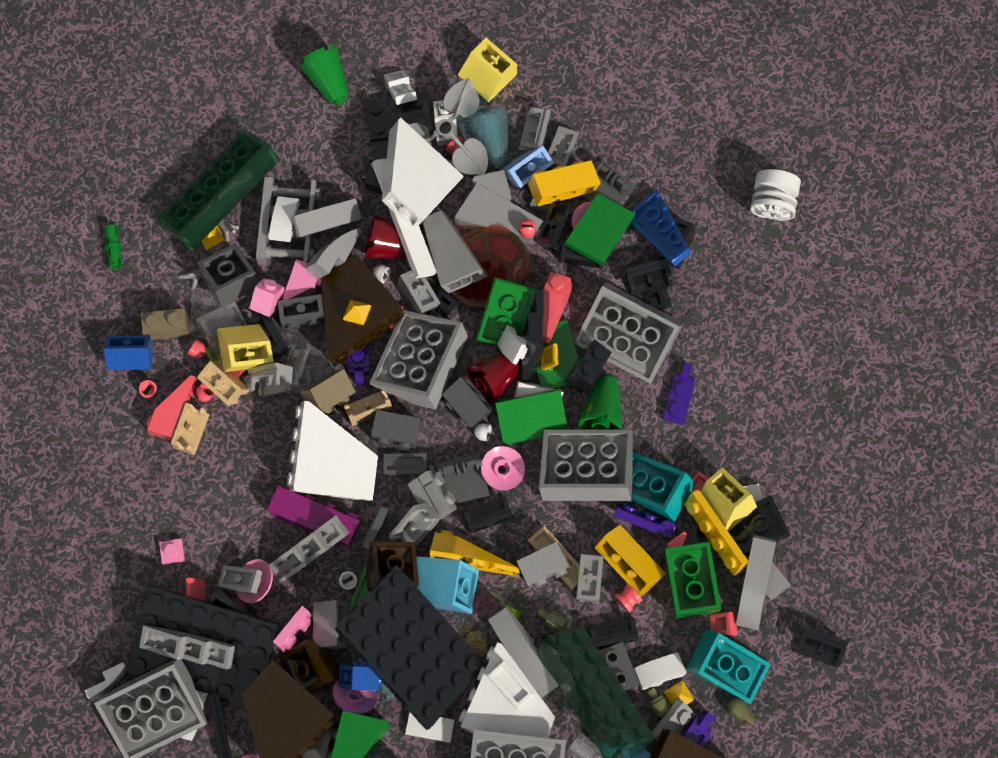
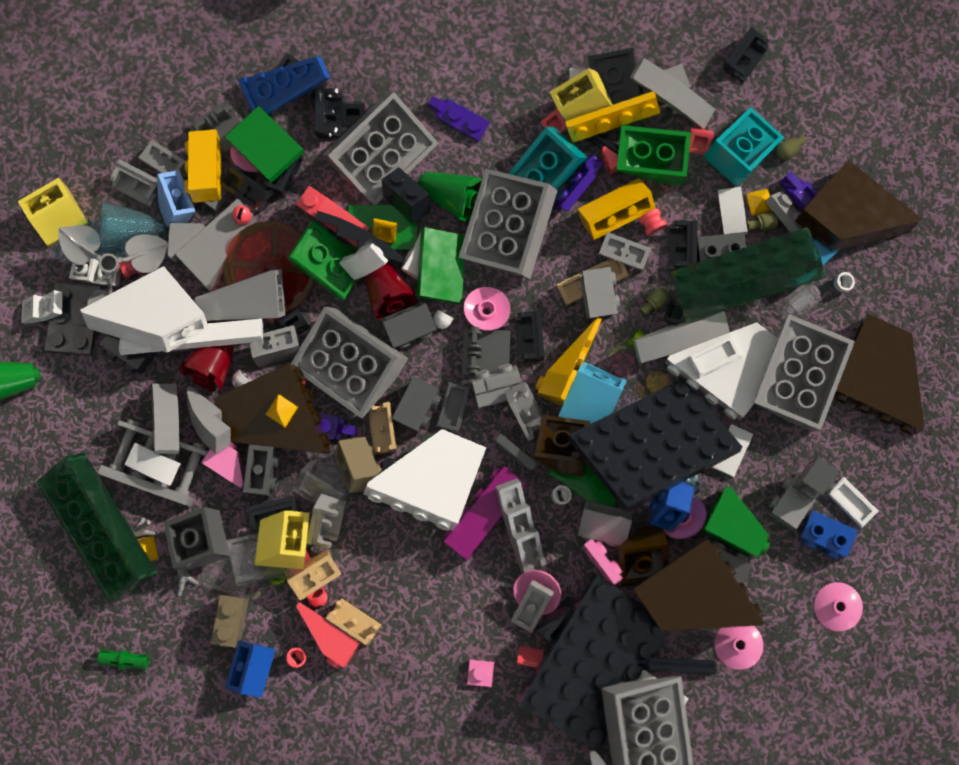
camera: 70 degrees left, 5 degrees up
(186, 646) = (593, 678): light grey slope -> none
(197, 350) = (268, 593): coral hinge -> none
(266, 297) = (235, 502): bright pink slope -> none

